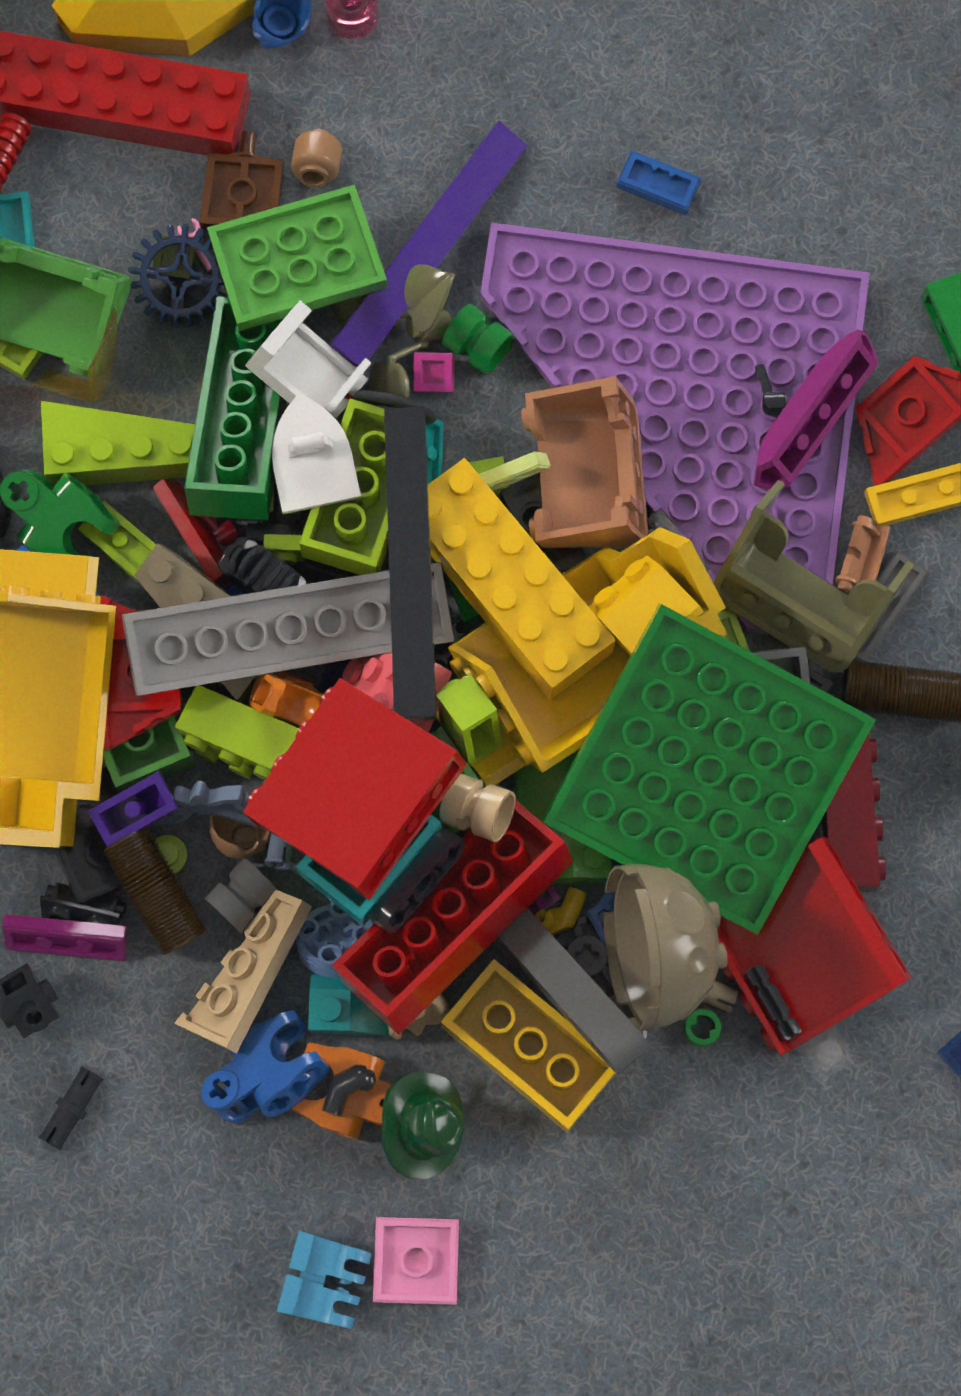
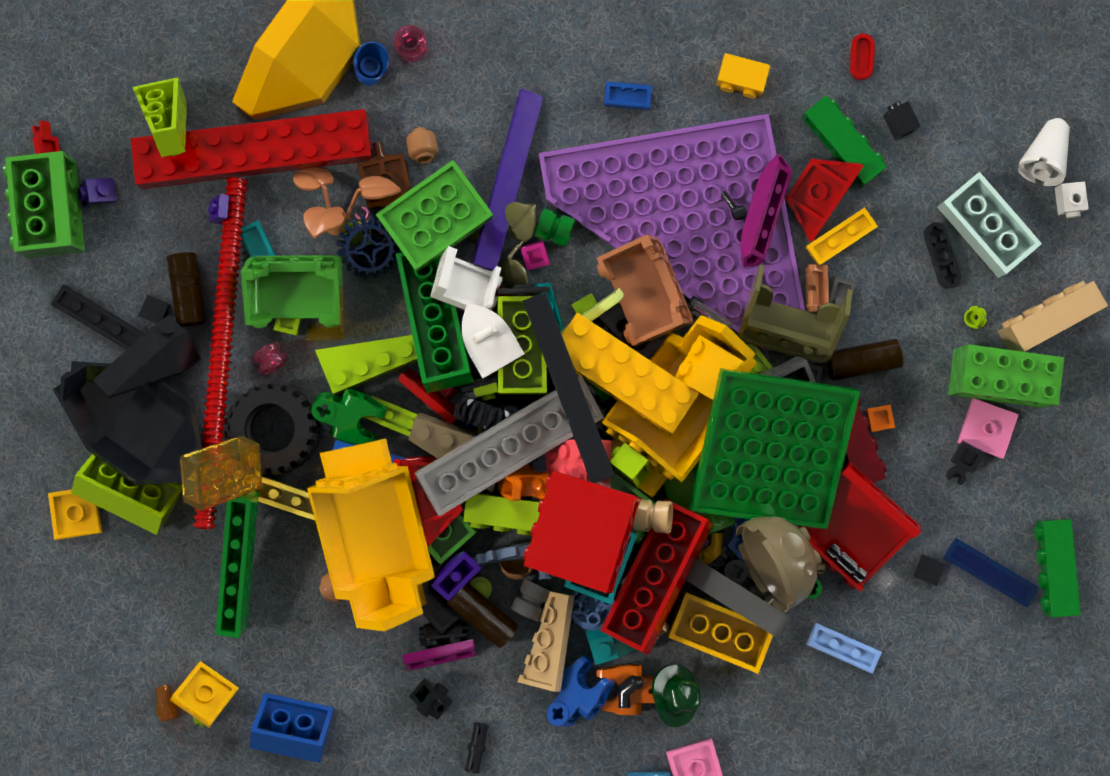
camera: 20 degrees left, 10 degrees up
(116, 201) = (332, 220): none -> nougat plant
(418, 880) = (633, 568): black beam -> none
(726, 1145) = (844, 648): none -> light blue tile
(846, 205) = (742, 76): none -> yellow brick
(901, 793) = (880, 418): none -> orange plate
(907, 1063) = (929, 570): none -> black tile

